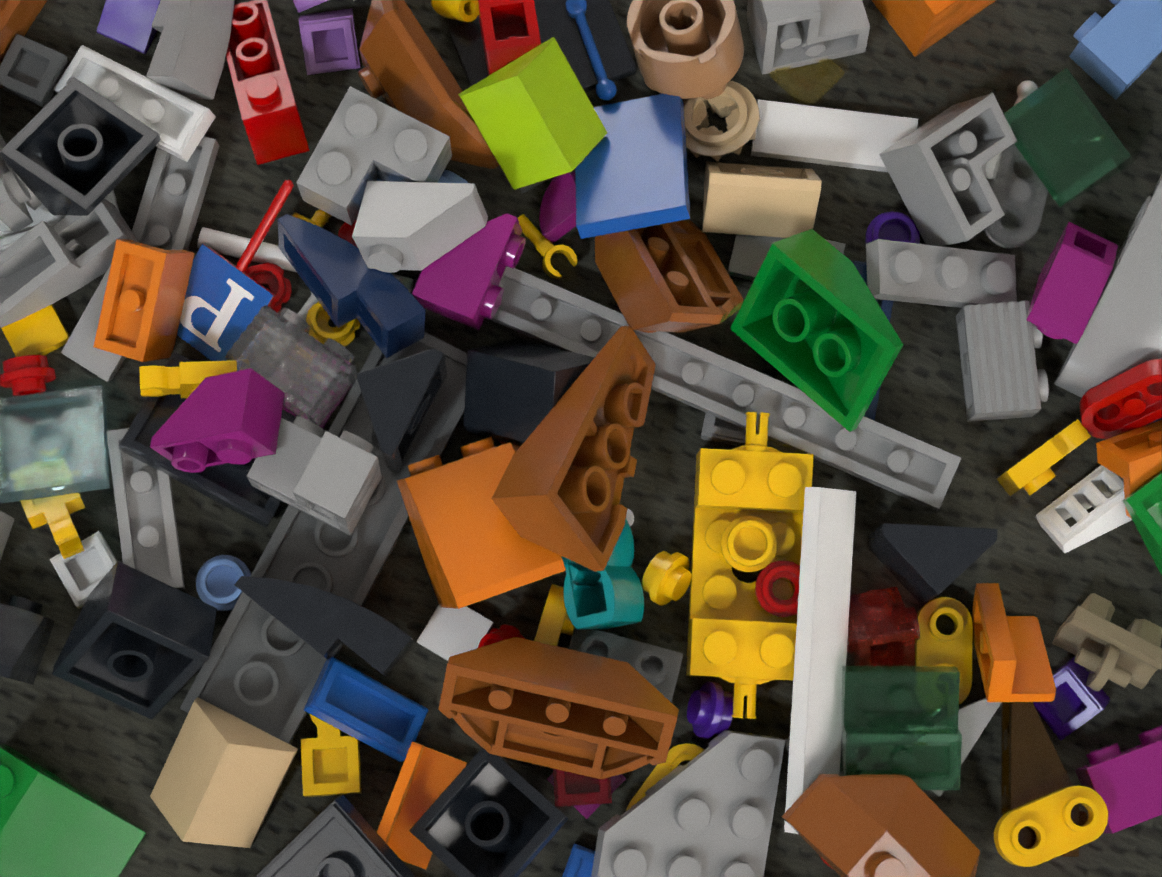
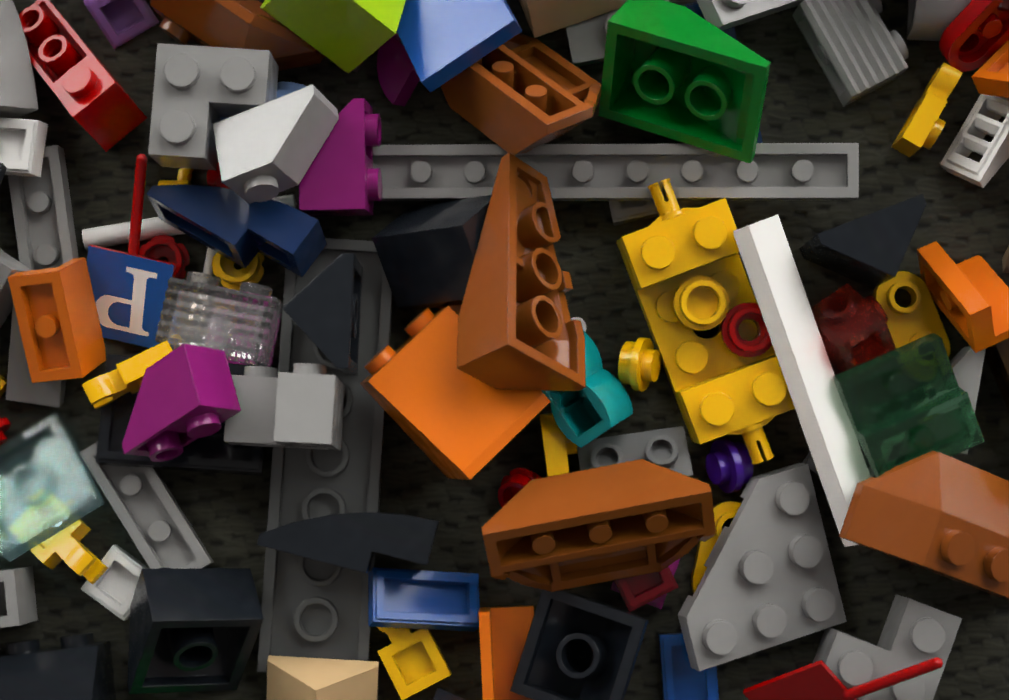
camera: 15 degrees left, 5 degrees up
(217, 580) = (239, 541): medium blue plate -> none
(454, 631) = (472, 499): white tile -> none
(546, 247) = (400, 113): yellow hand -> none

